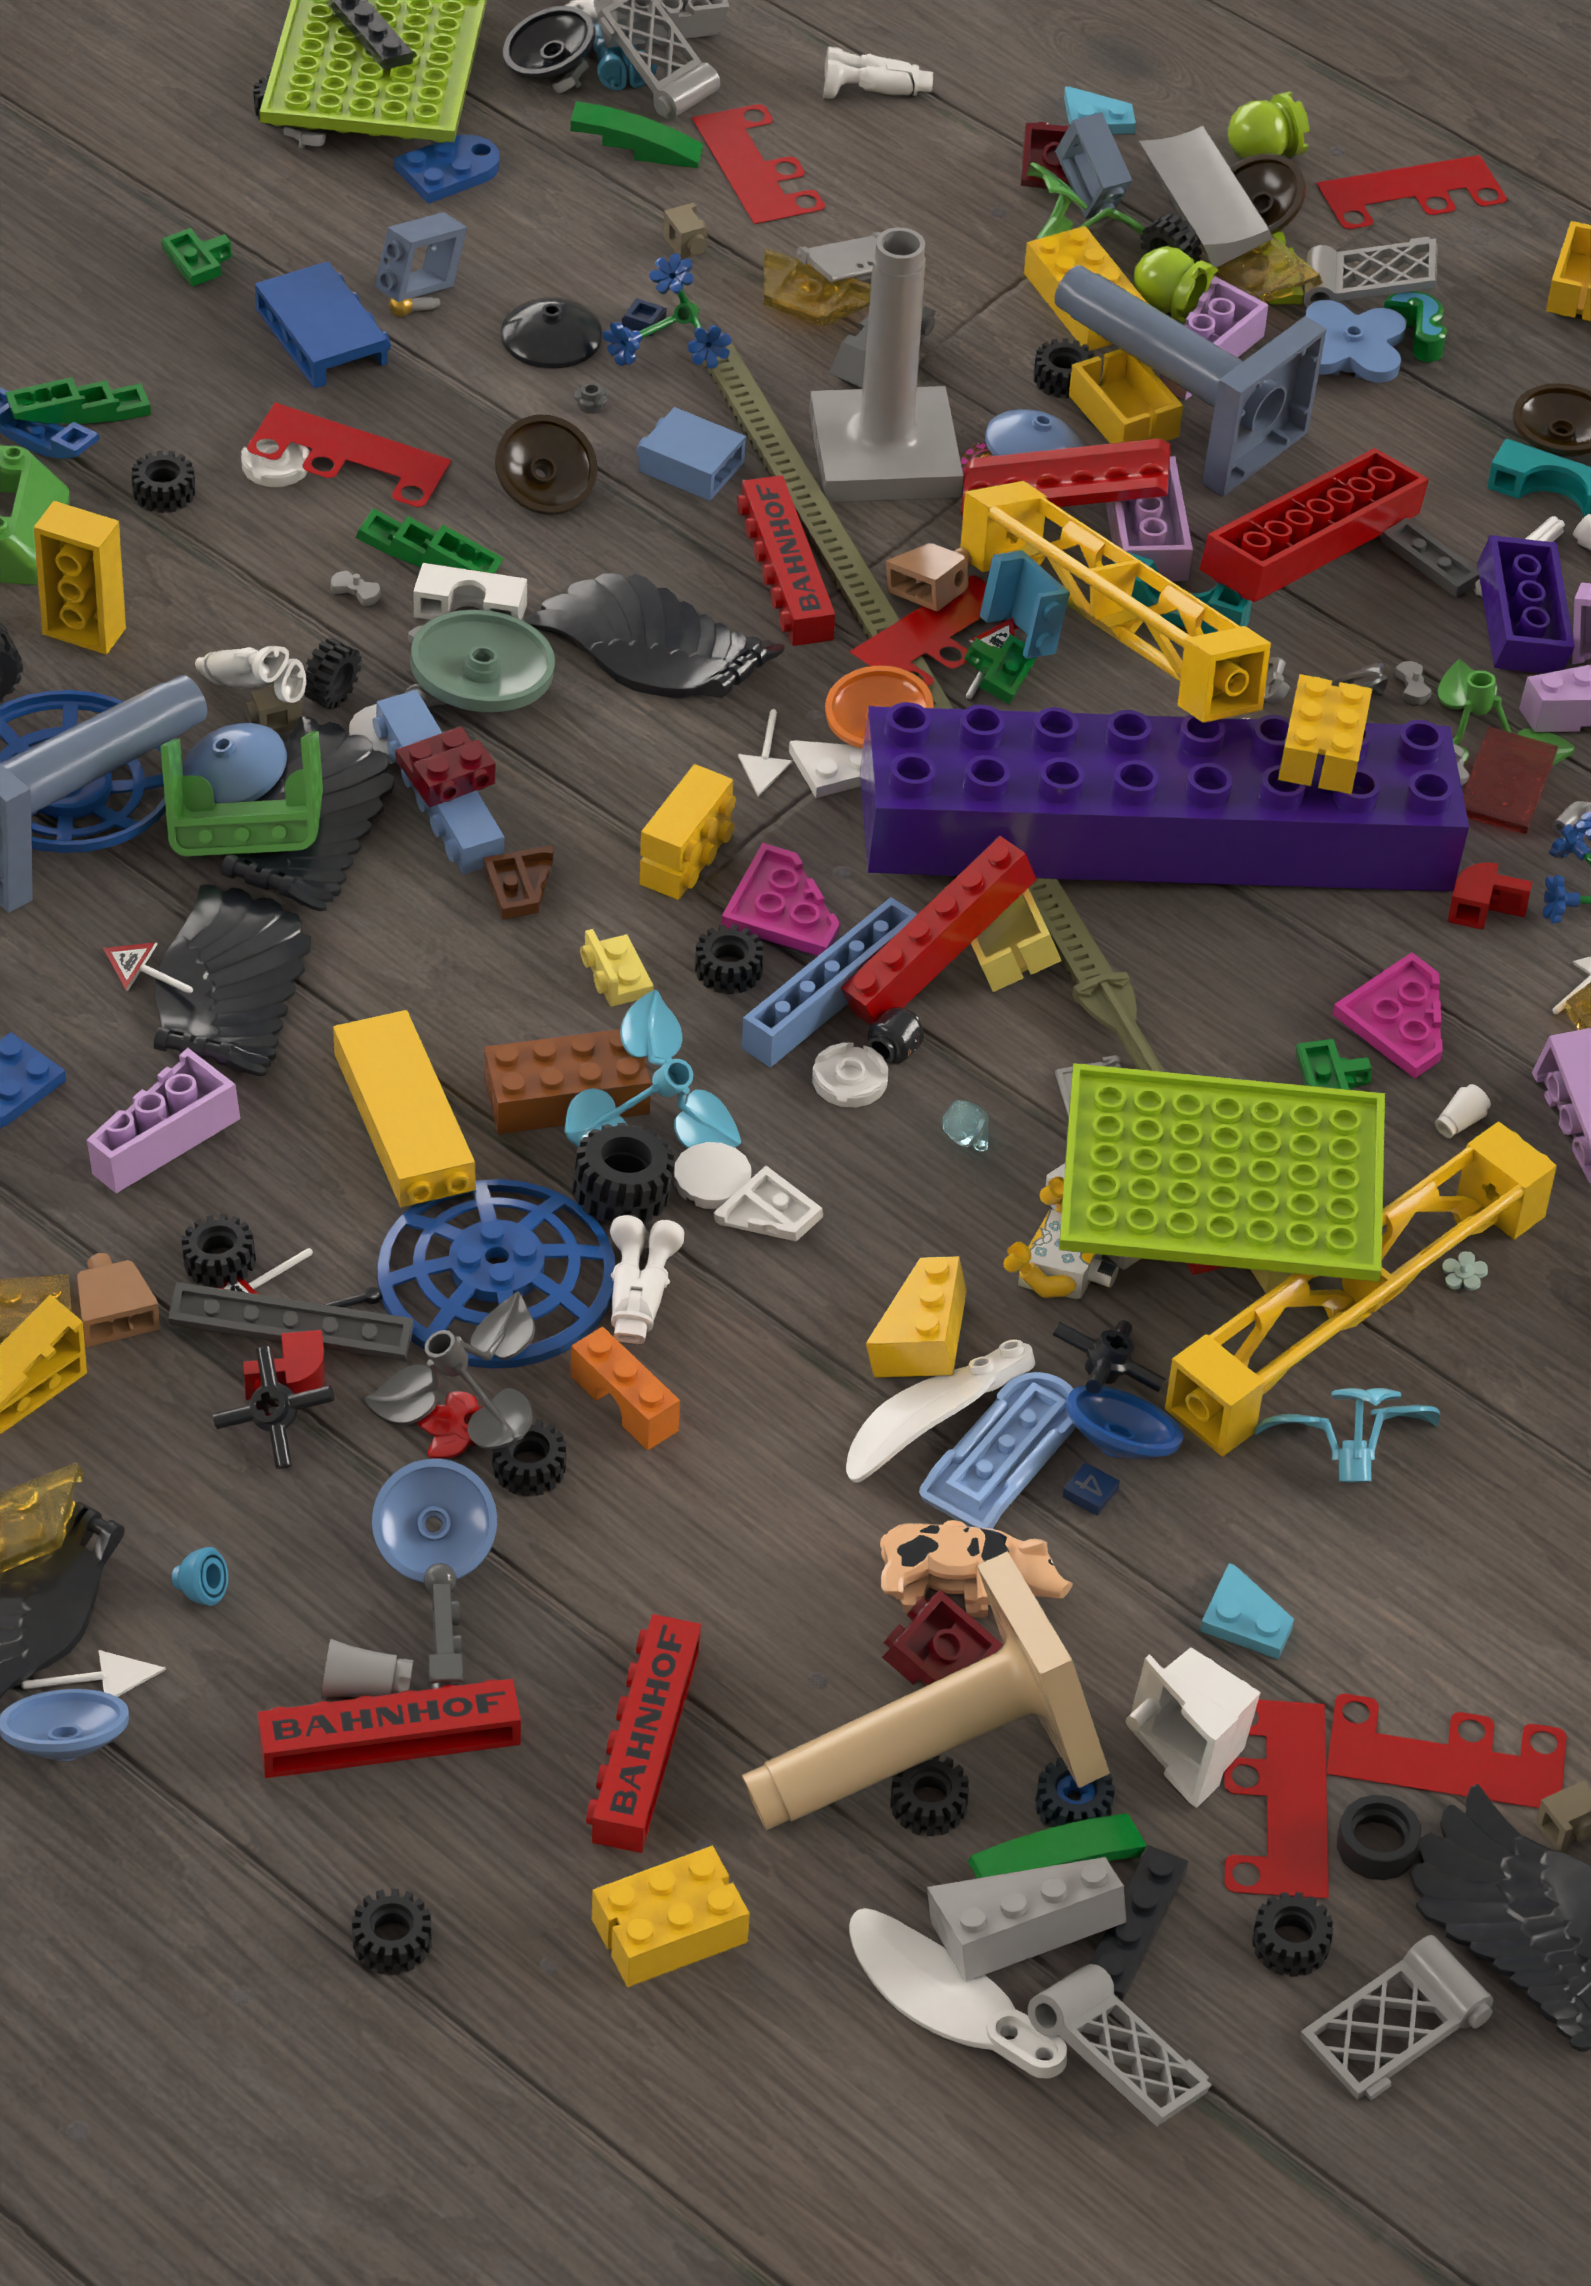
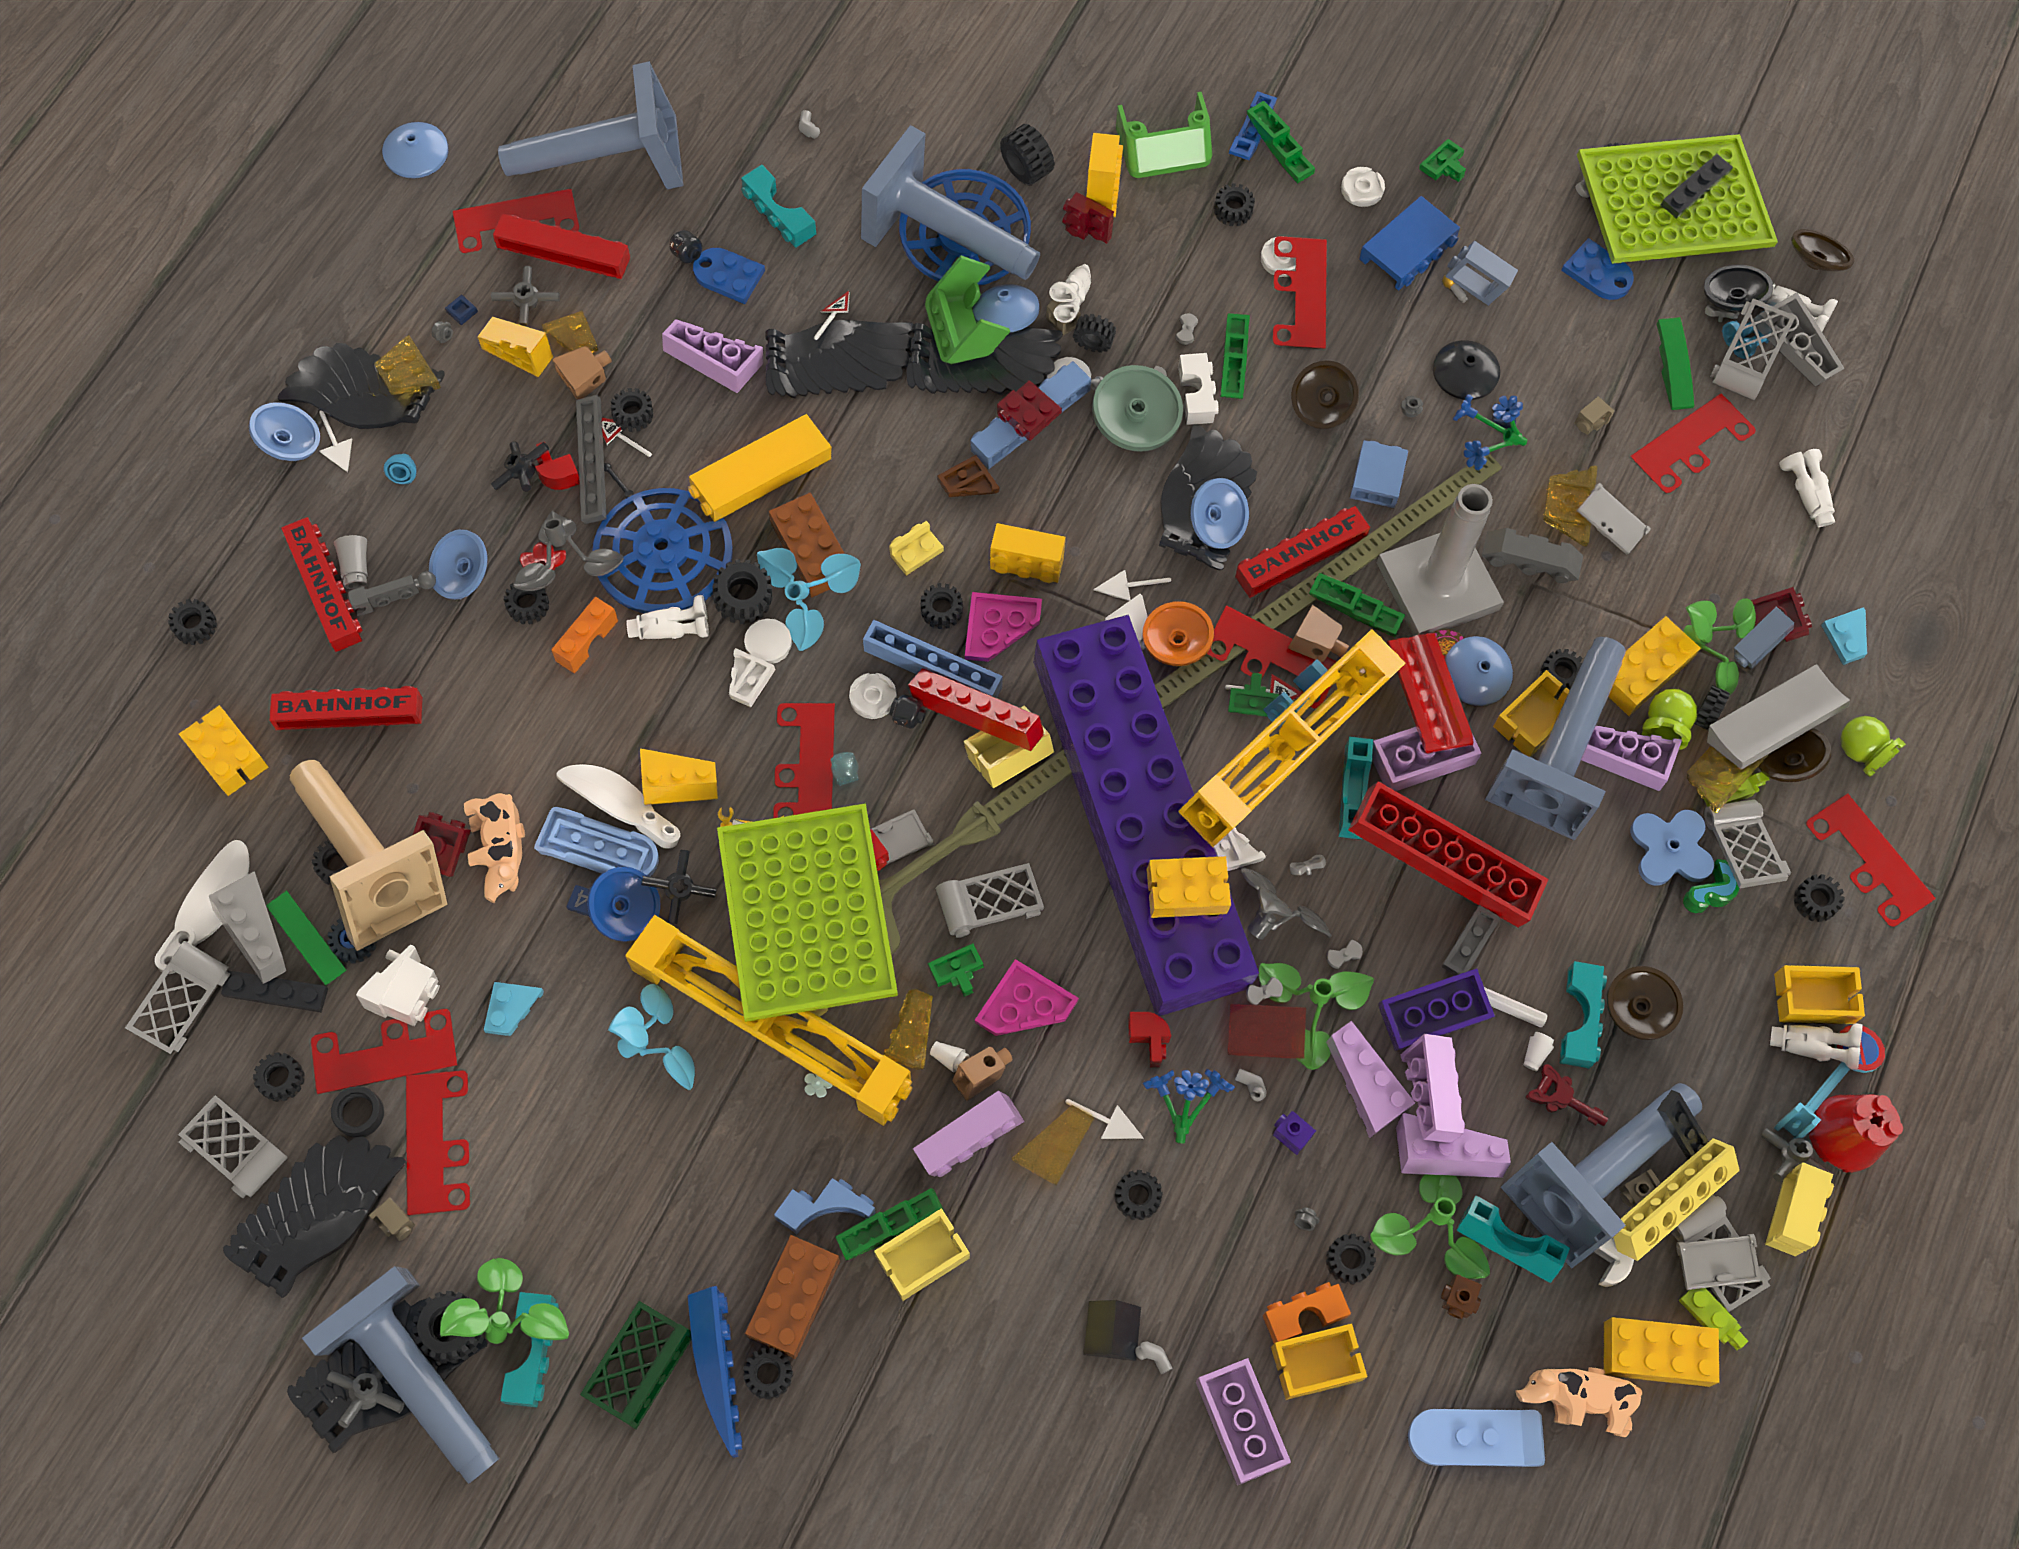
camera: 75 degrees right, 20 degrees up
(122, 628) = (1087, 217): none -> dark red plate
(193, 349) = (1362, 186): none -> white tile
(704, 613) = (1227, 509): none -> medium blue dish
(893, 527) = (1357, 605): none -> green slope
(945, 1169) = (814, 770): none -> red piece
(1230, 1047) = (959, 909): none -> light grey piece
(1416, 1134) = (911, 1035): none -> clear yellow wing
(1458, 241) = (1825, 886): none -> black tyre
(1504, 1075) = (980, 1071): none -> medium nougat torso

